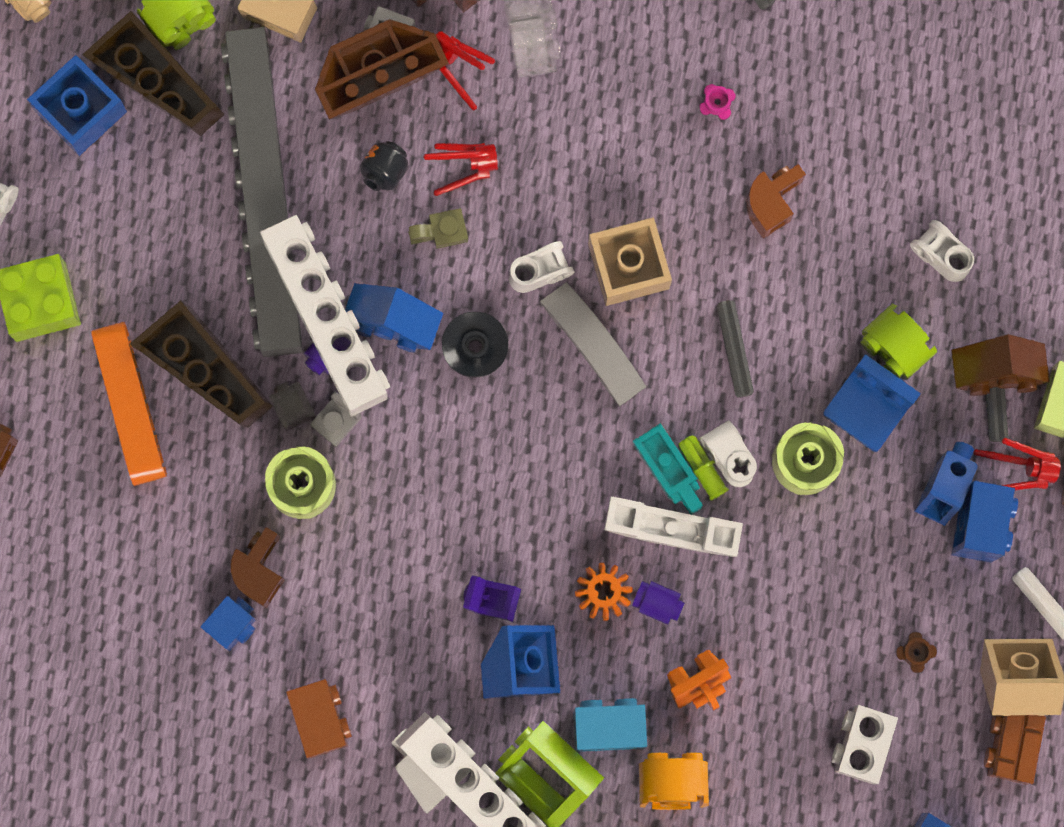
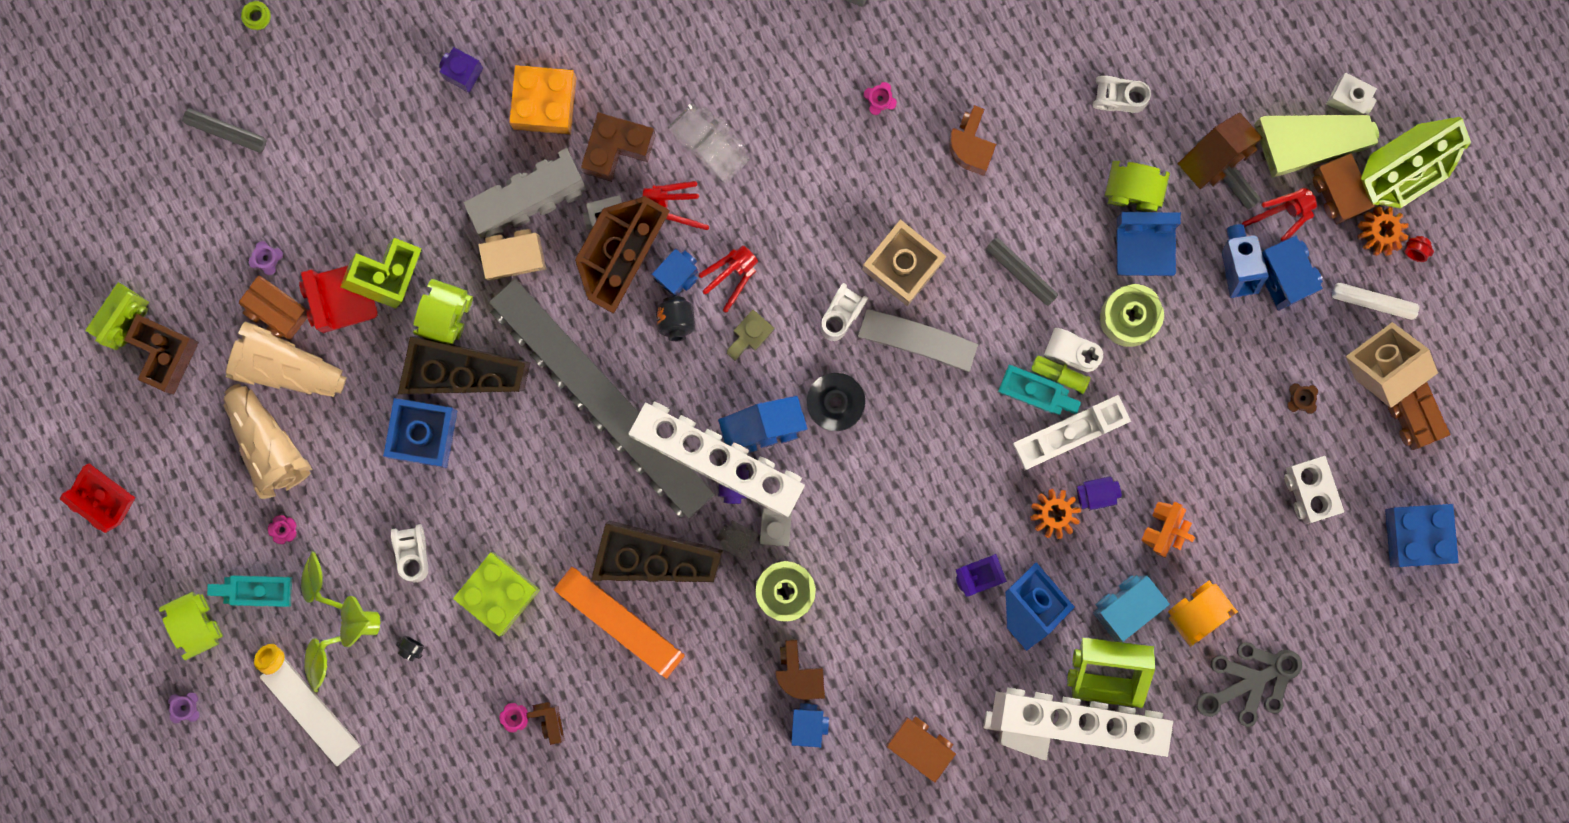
camera: 30 degrees left, 5 degrees up
(416, 126) = (677, 272): none -> blue brick

